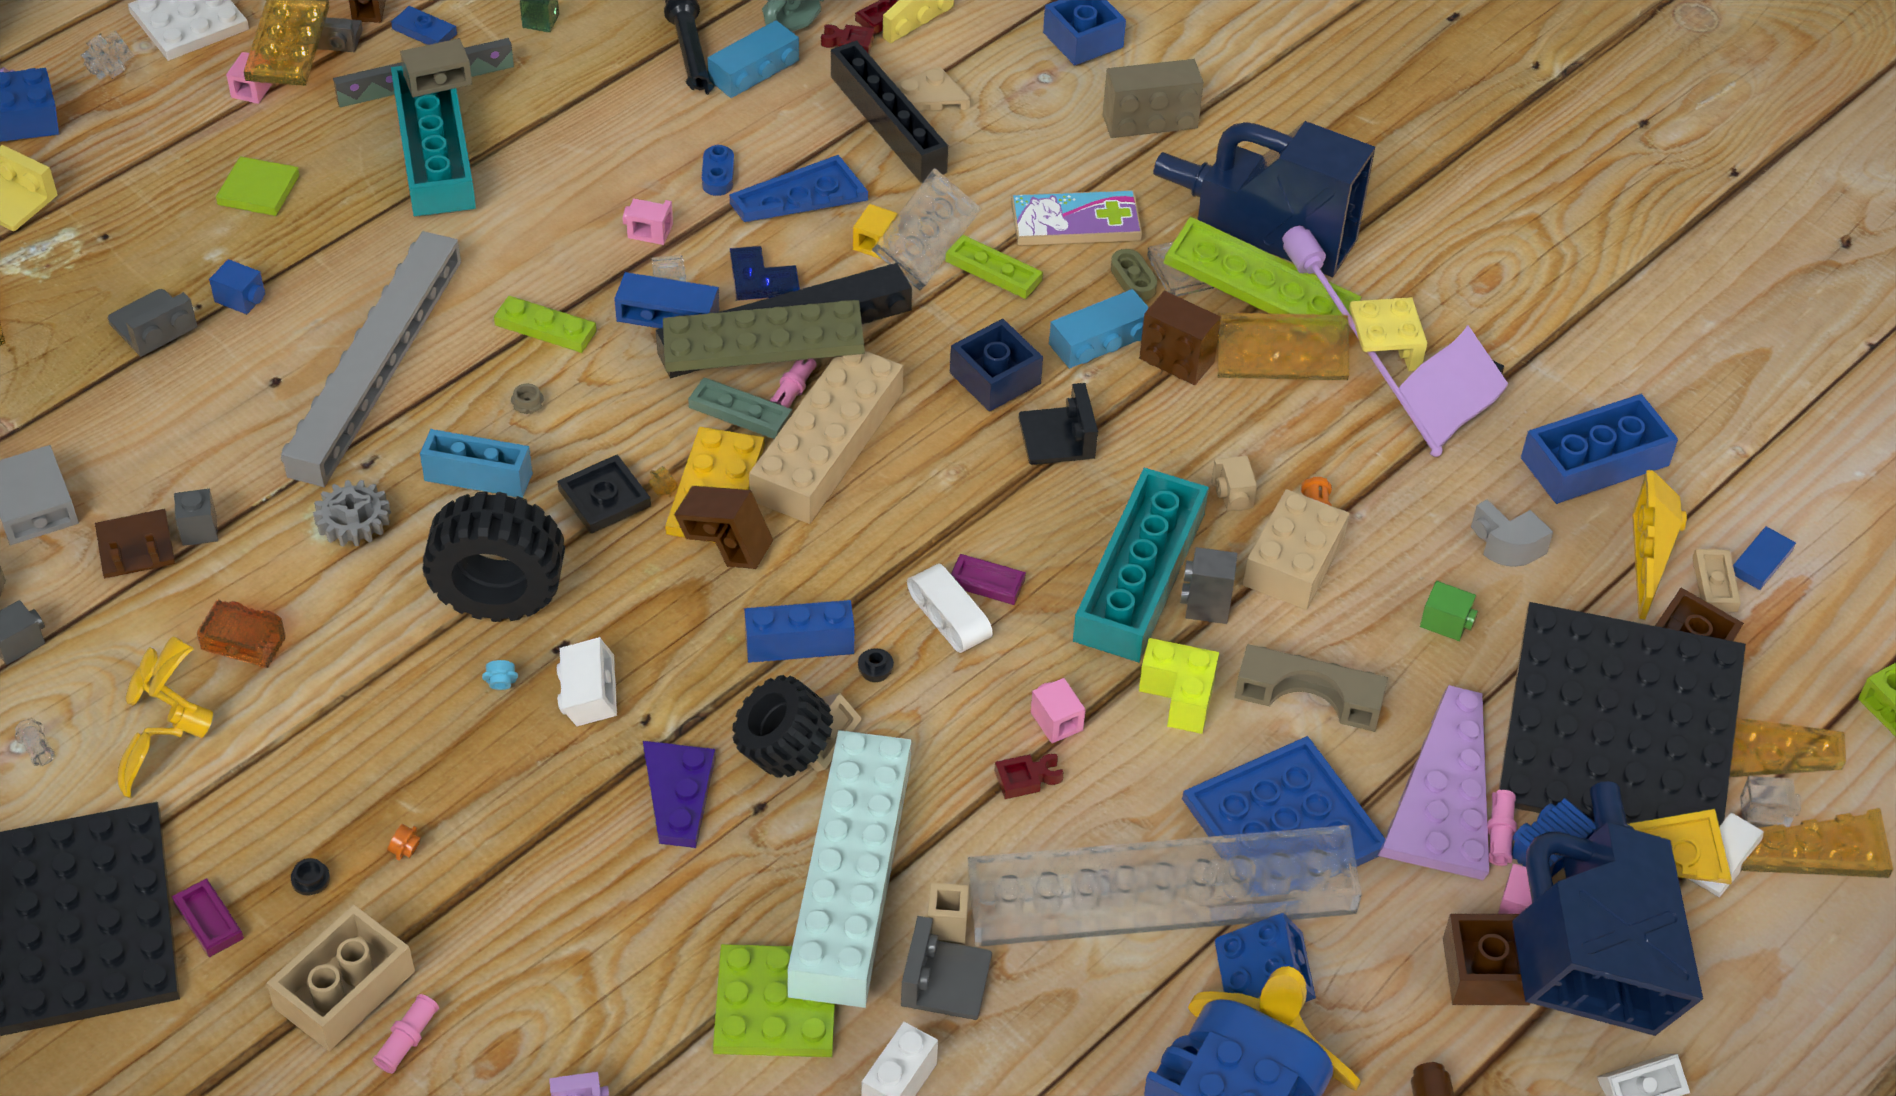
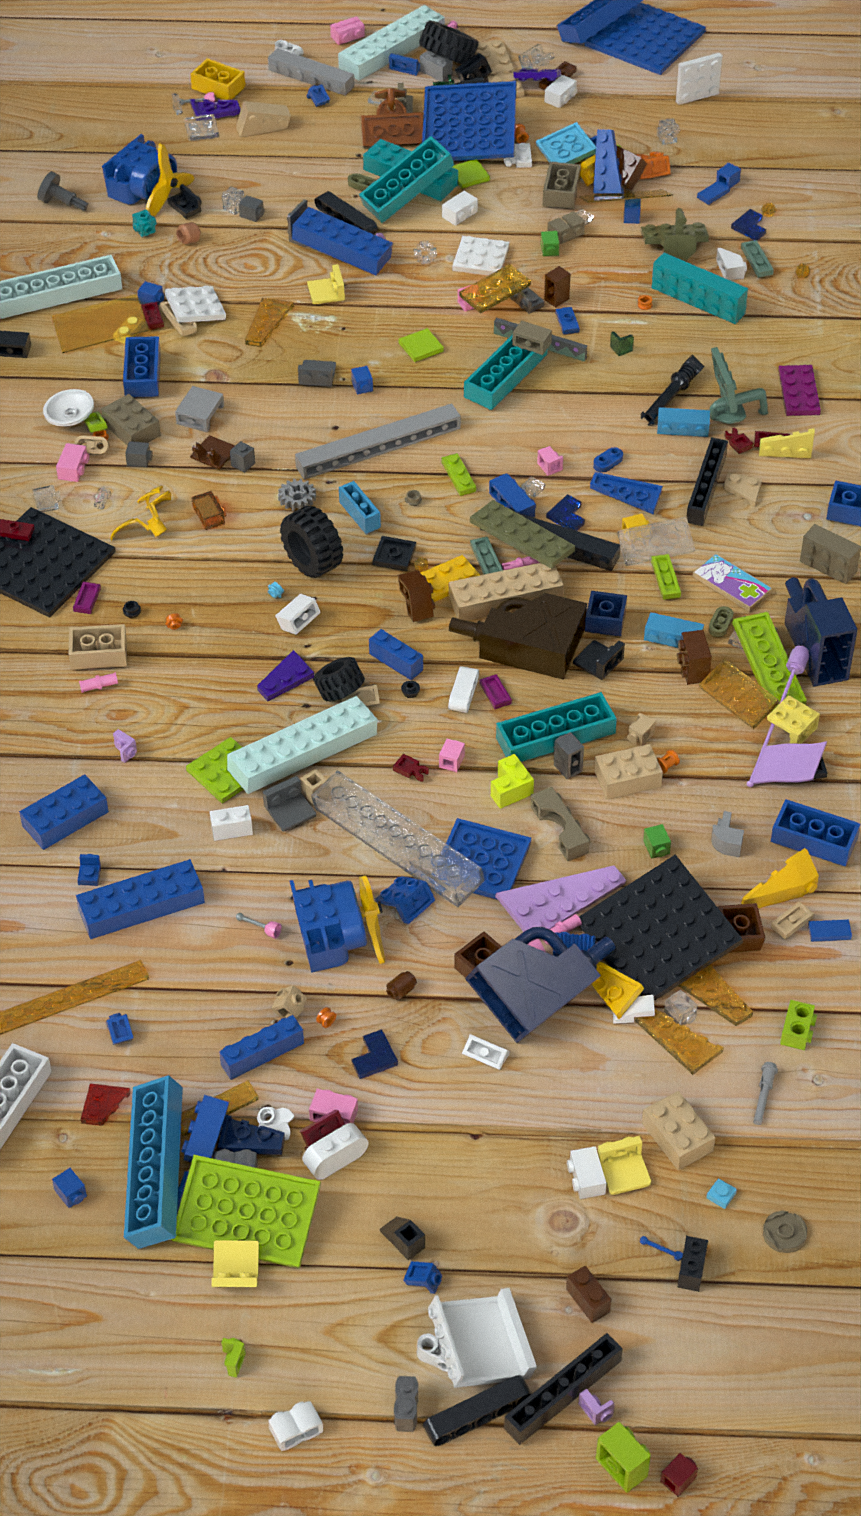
camera: 50 degrees right, 0 degrees up
(961, 463) = (534, 637): none -> dark brown piece

